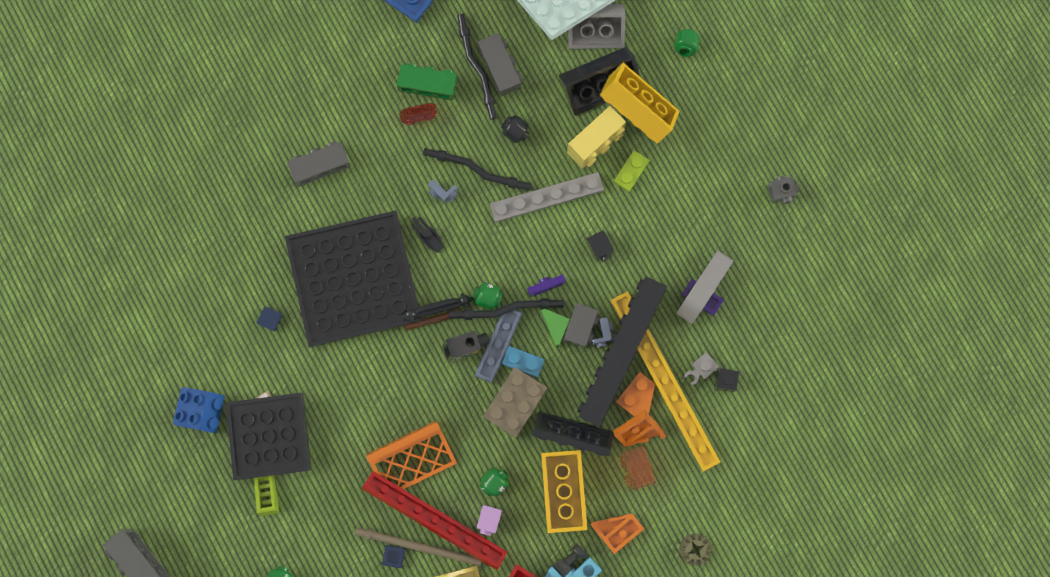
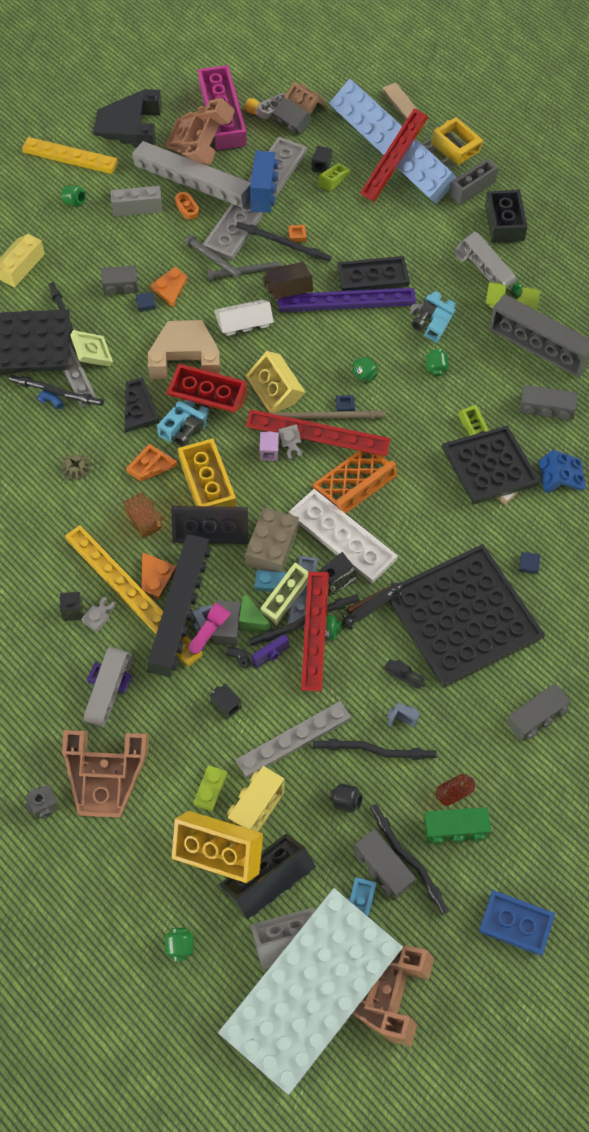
camera: 165 degrees right, 20 degrees down
(179, 498) = (548, 402): none -> dark grey brick
(443, 394) = (343, 535): none -> white plate
(464, 520) = (290, 438): none -> light grey plate
(494, 482) = (272, 475): green head -> none
(500, 287) = (315, 631): none -> red plate
(518, 334) = (285, 594): none -> yellowish green brick
(527, 41) = (362, 894): none -> dark azure plate
(574, 290) = (241, 655): none -> black arm
(590, 322) = (216, 616): none -> dark pink piece
(638, 430) = (148, 545): orange wing -> none
(724, 203) = (103, 780): none -> nougat wedge

